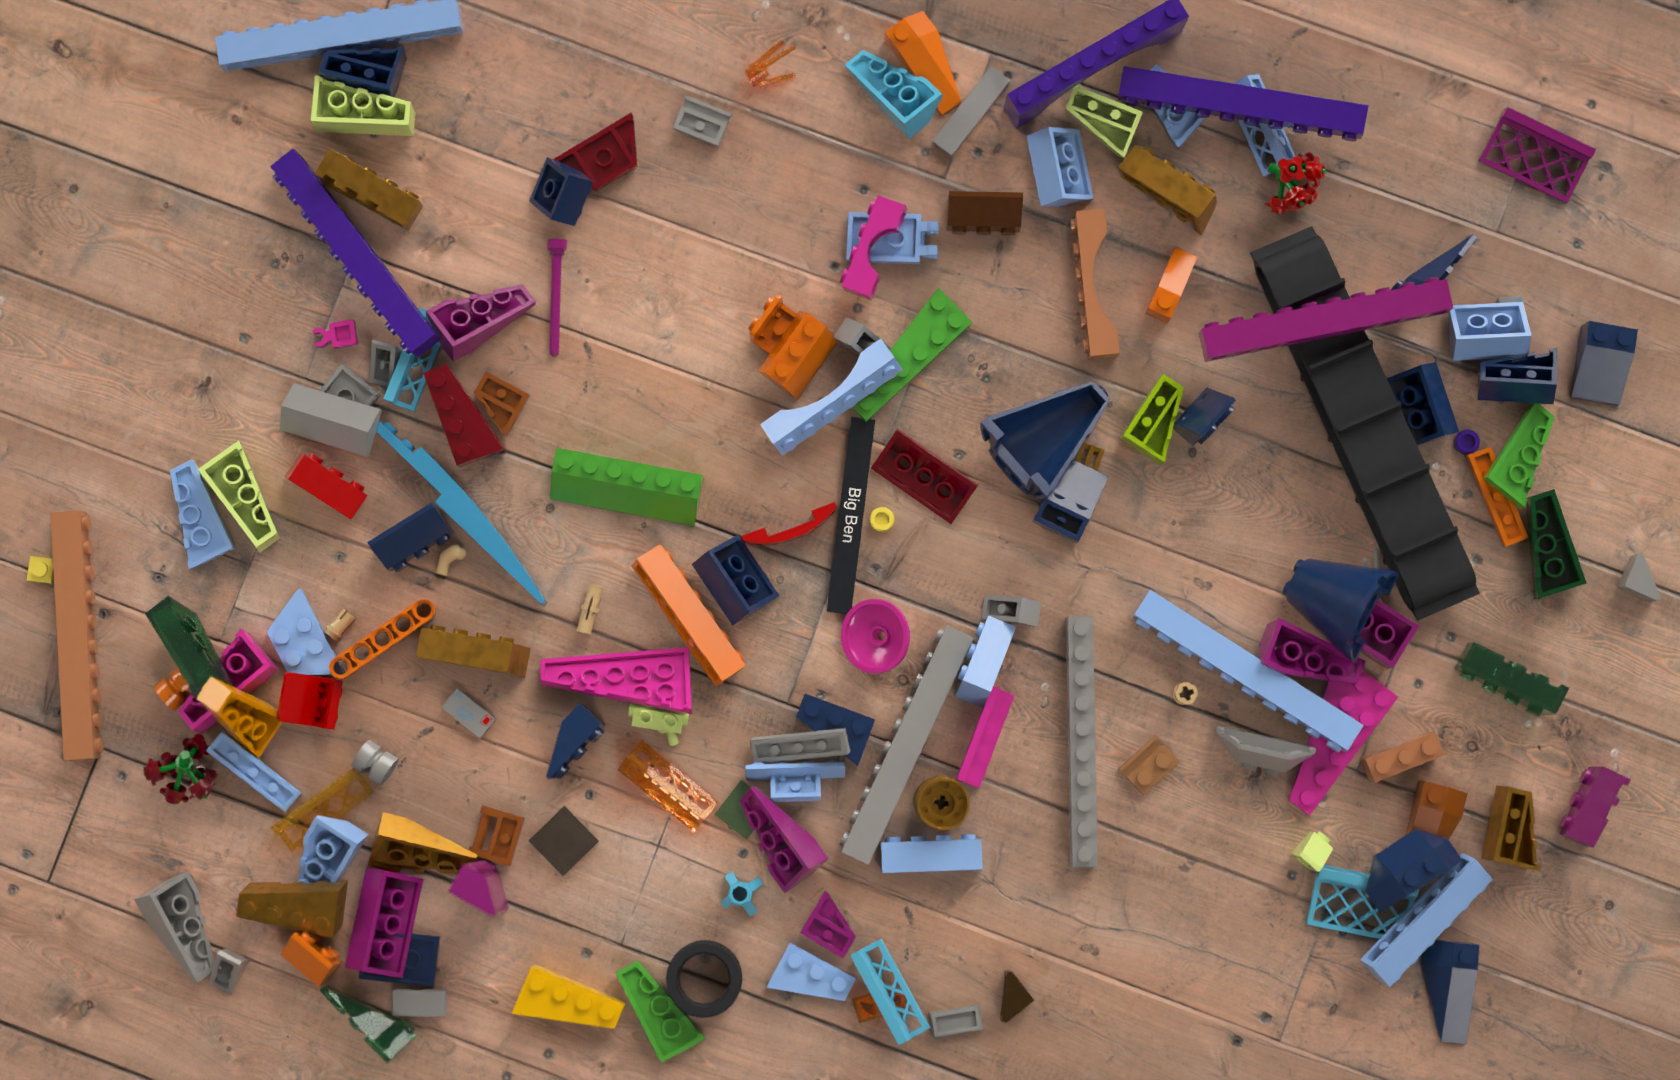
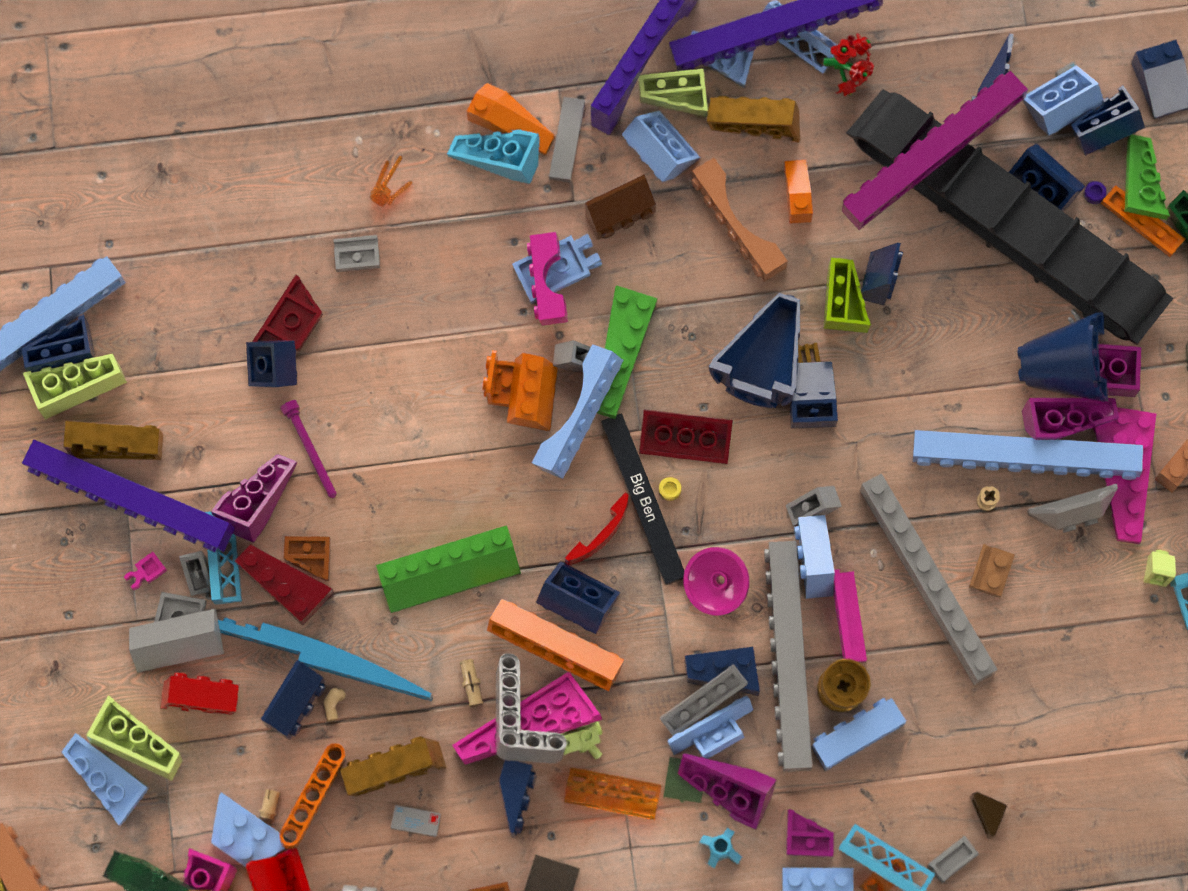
camera: 25 degrees left, 10 degrees down
(606, 665) = (509, 714): none -> light grey beam

